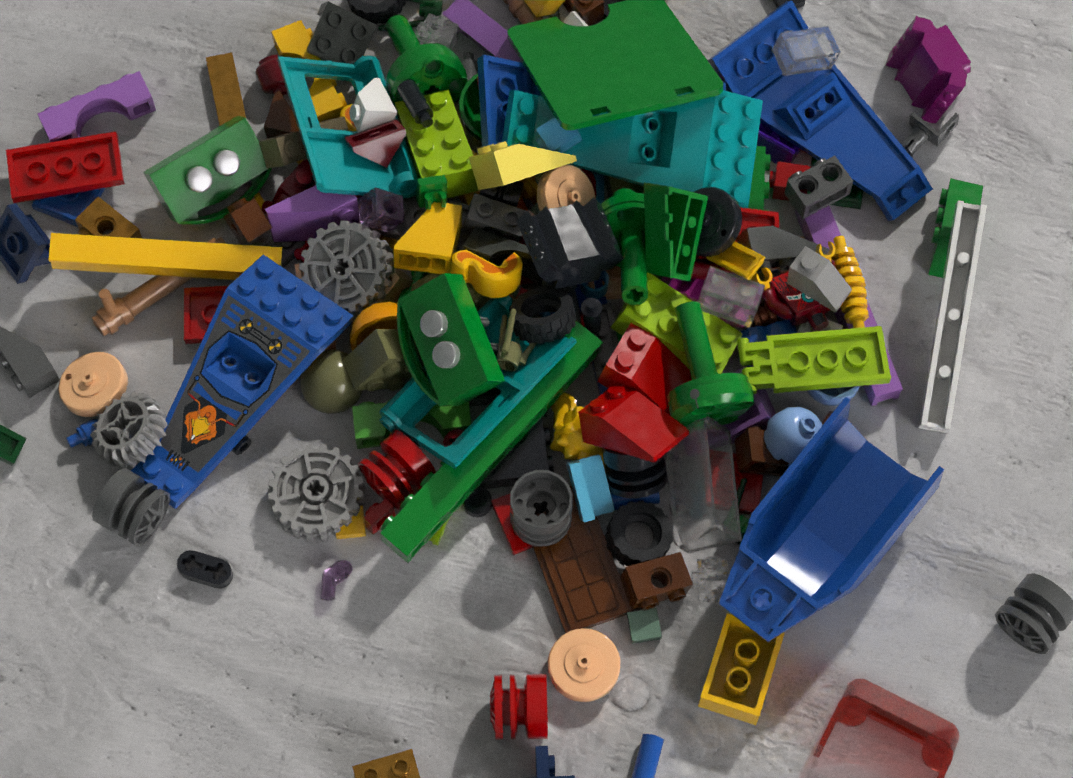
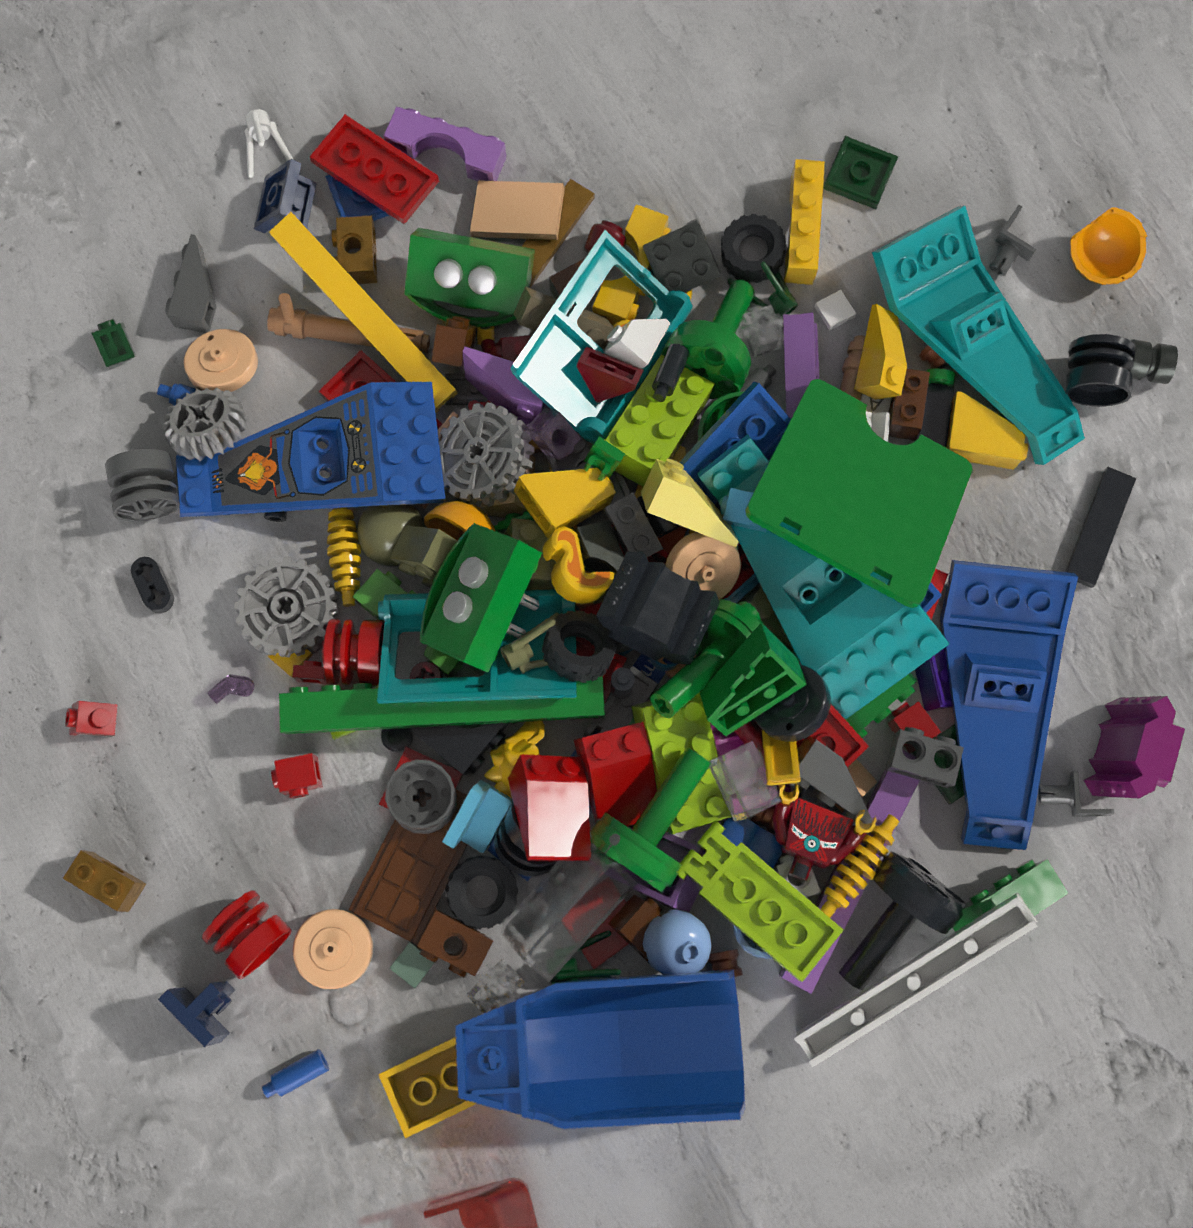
camera: 45 degrees right, 10 degrees up
(192, 107) = (517, 210): none -> light nougat tile
(259, 690) = (91, 718): none -> bracket
(316, 422) = (344, 553): none -> yellow piece
(440, 585) = (297, 775): none -> red brick
(806, 50) = (1044, 631): clear brick -> none
(818, 279) = (830, 841): light grey slope -> none
(900, 270) = (914, 896): none -> black piece

